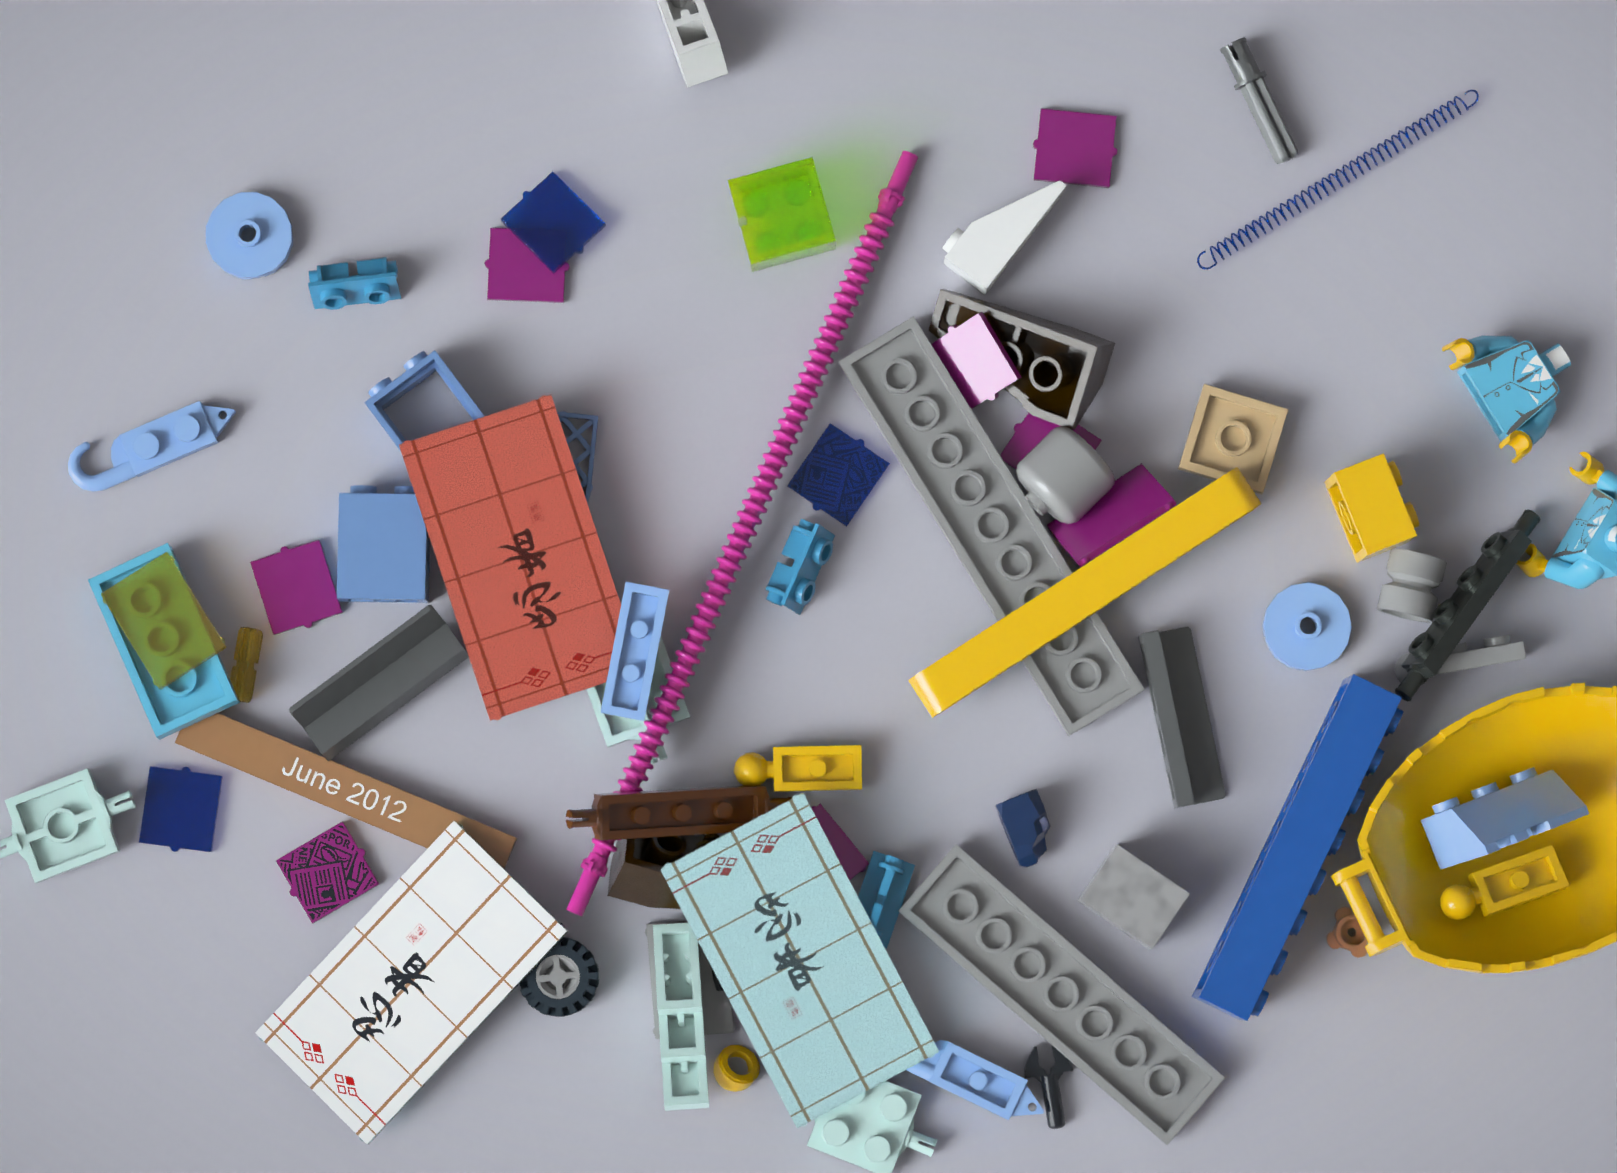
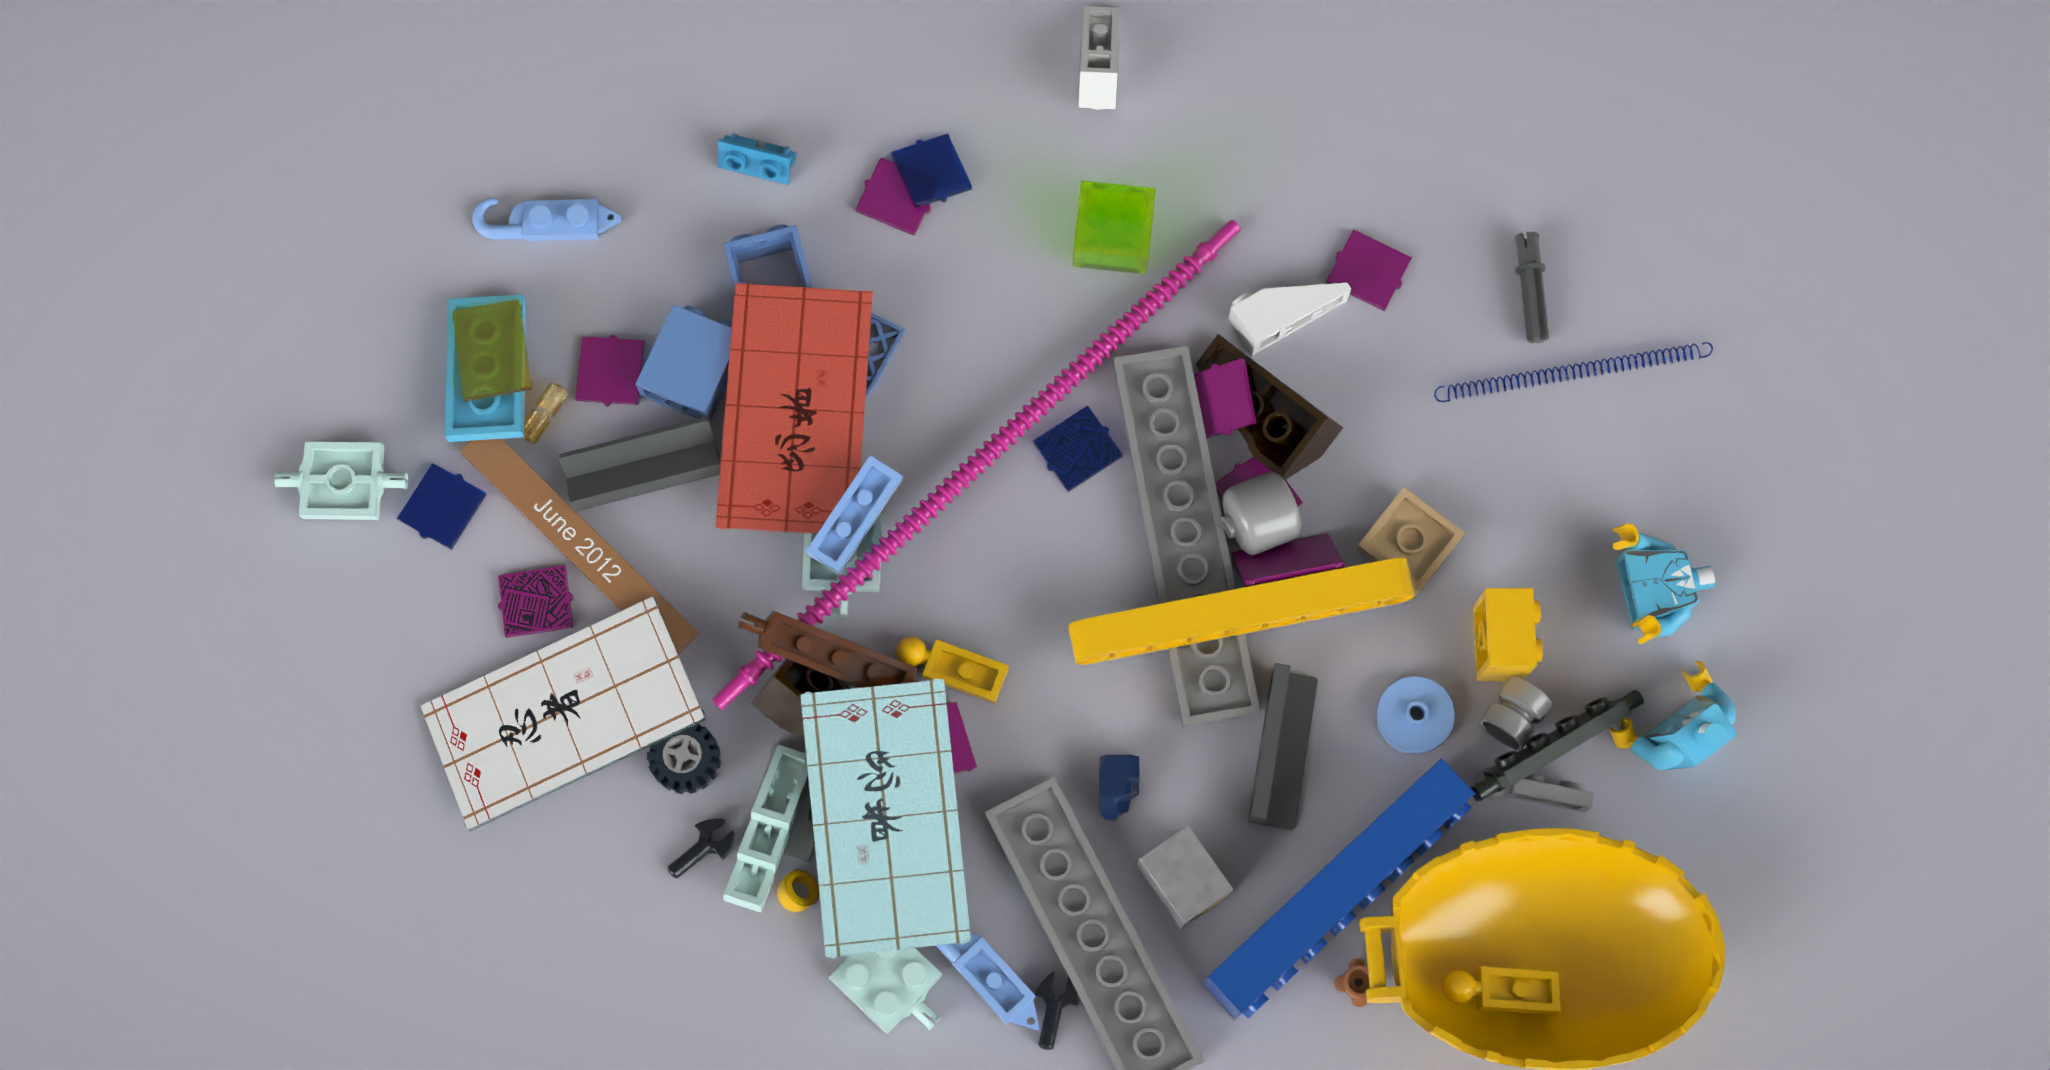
camera: 20 degrees right, 10 degrees down
(262, 254) = (693, 109): light blue plate -> none
(617, 1064) = (703, 847): none -> black bar
(795, 585) = (1030, 495): dark azure hinge -> none
(884, 892) = (979, 794): dark azure hinge -> none
(1500, 816) = (1522, 929): light blue wedge -> none

